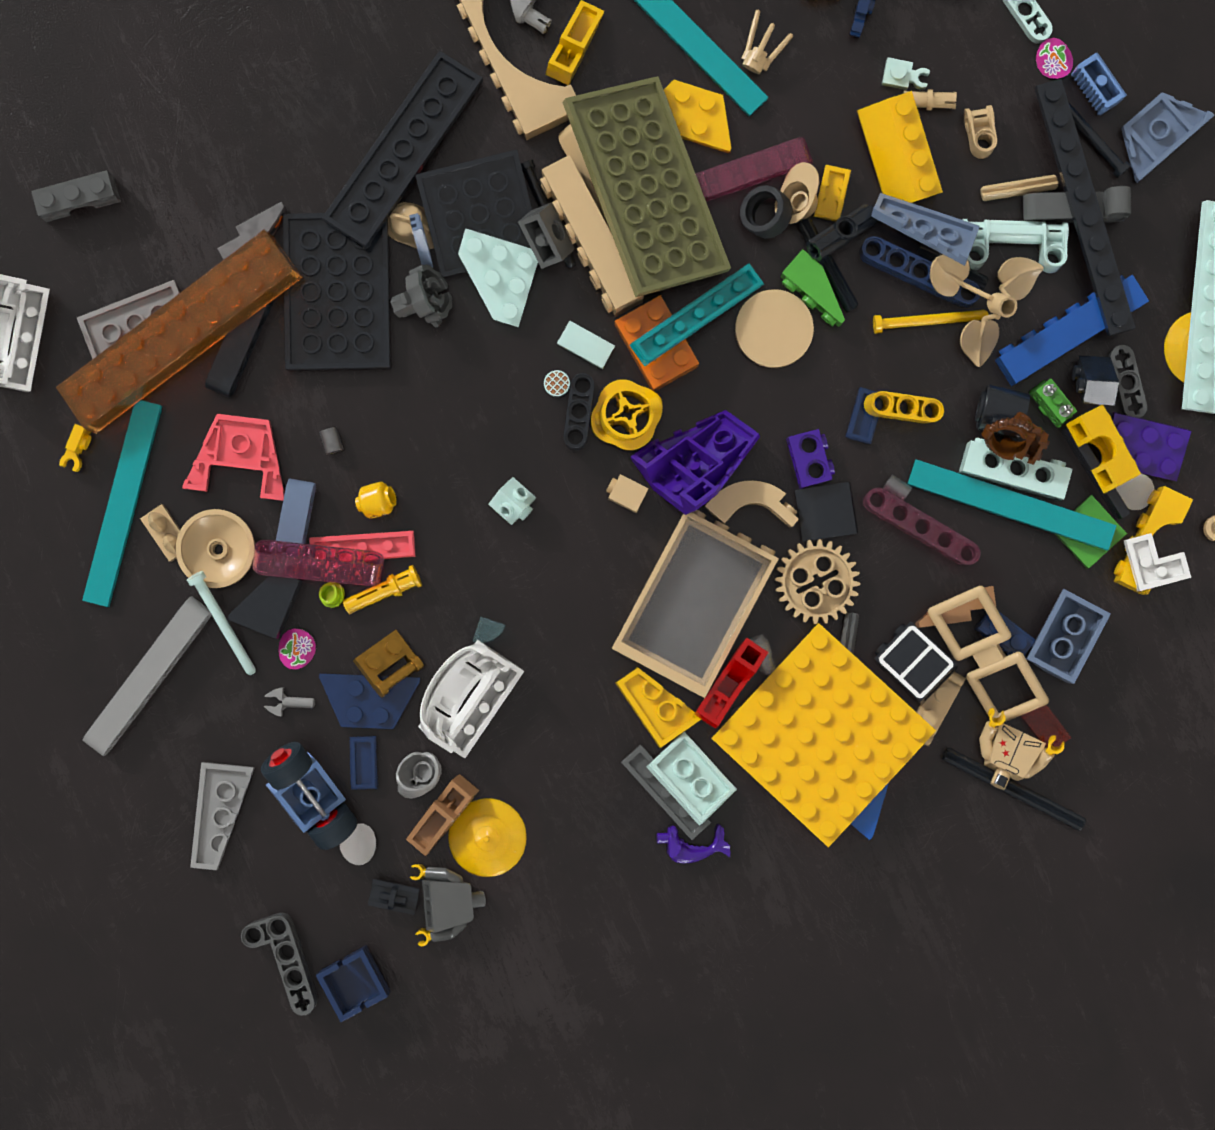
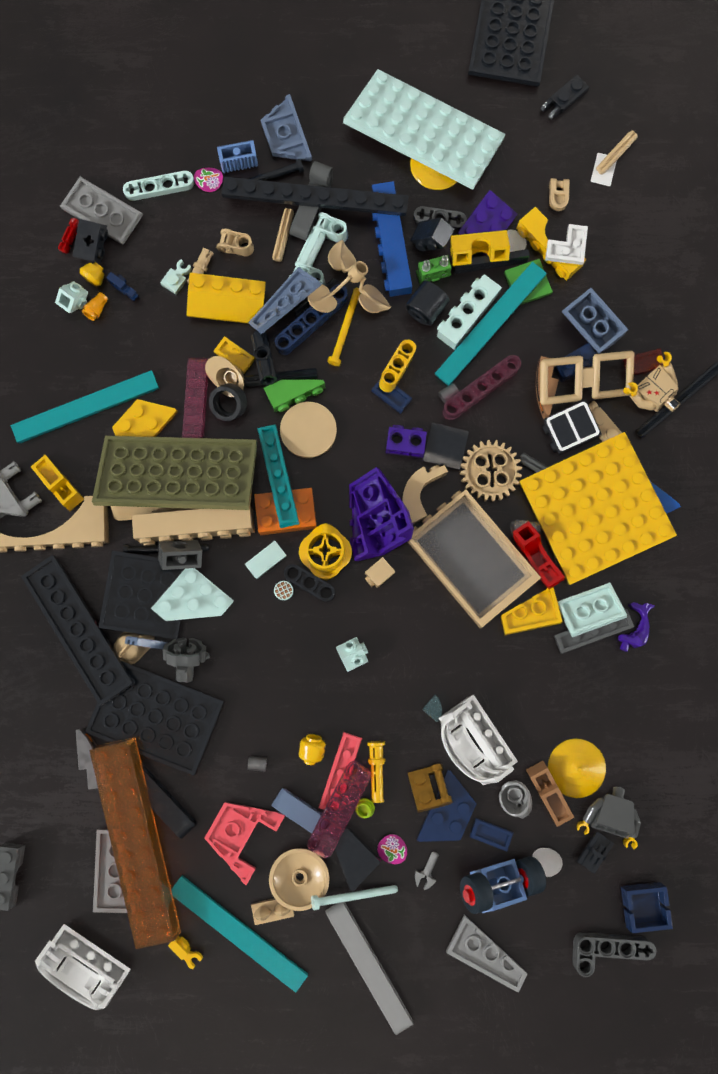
camera: 70 degrees left, 5 degrees down
(755, 59) = (122, 367): tan plant -> none
(1008, 449) = (459, 290): reddish brown piece -> none

